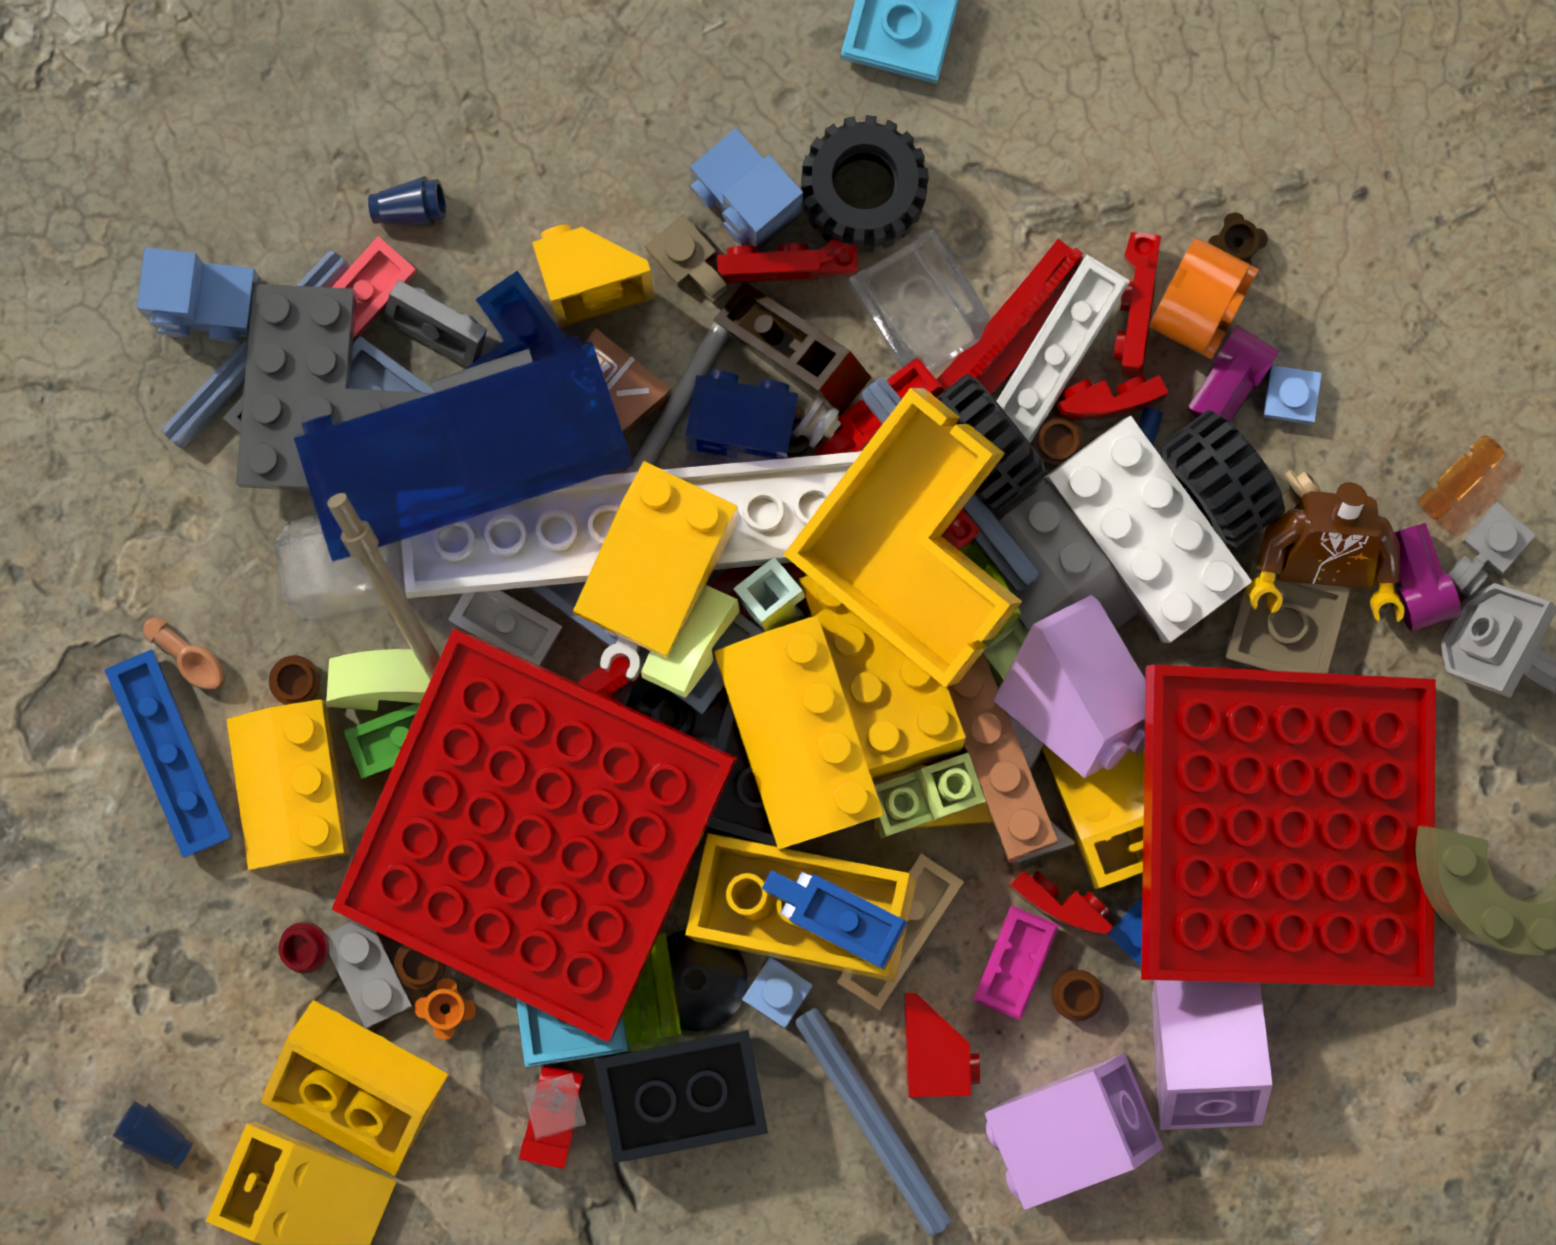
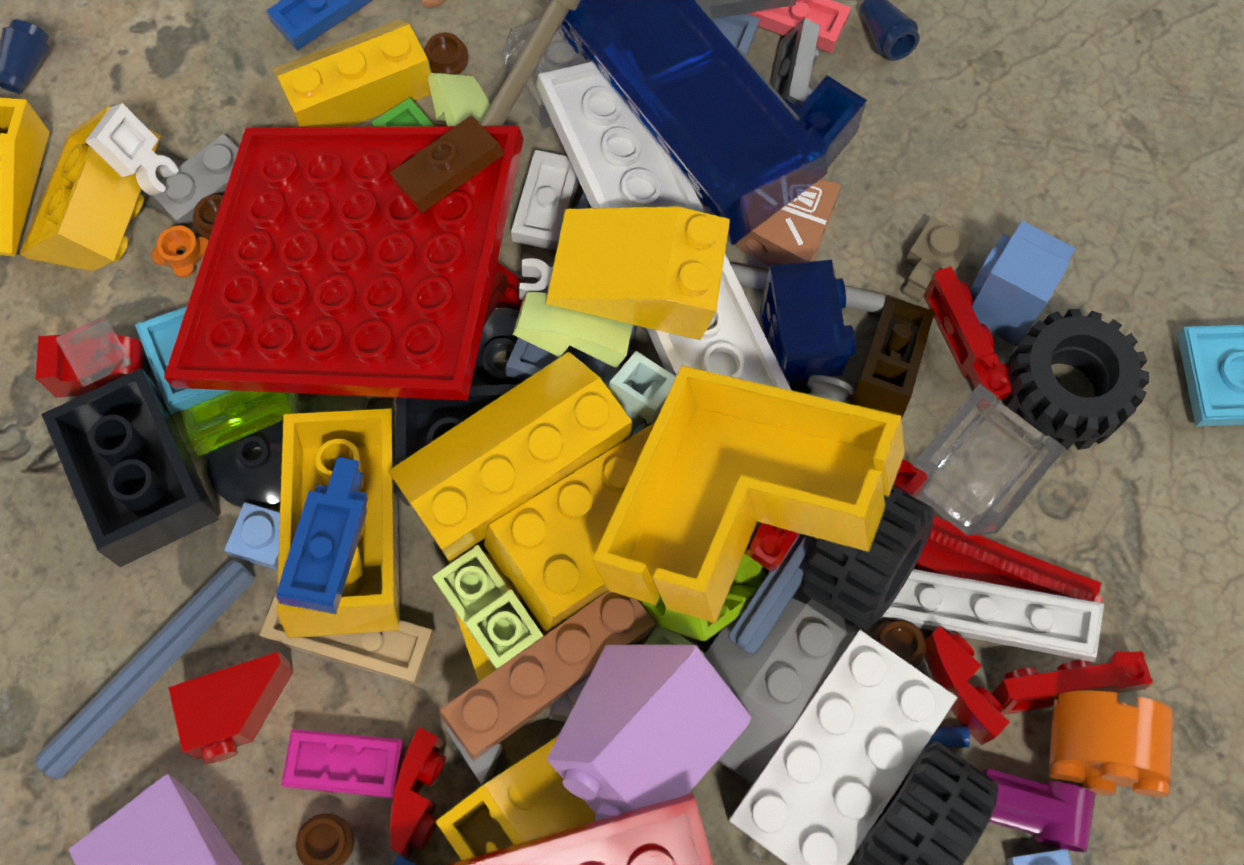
camera: 75 degrees right, 15 degrees down
(303, 947) = (209, 122): dark red plate -> none
(341, 1029) = (128, 149): none -> white plate
(476, 711) = (446, 163): none -> reddish brown plate
(589, 274) = (883, 149): yellow slope -> none
(1237, 227) = (1196, 774): dark brown plate -> none

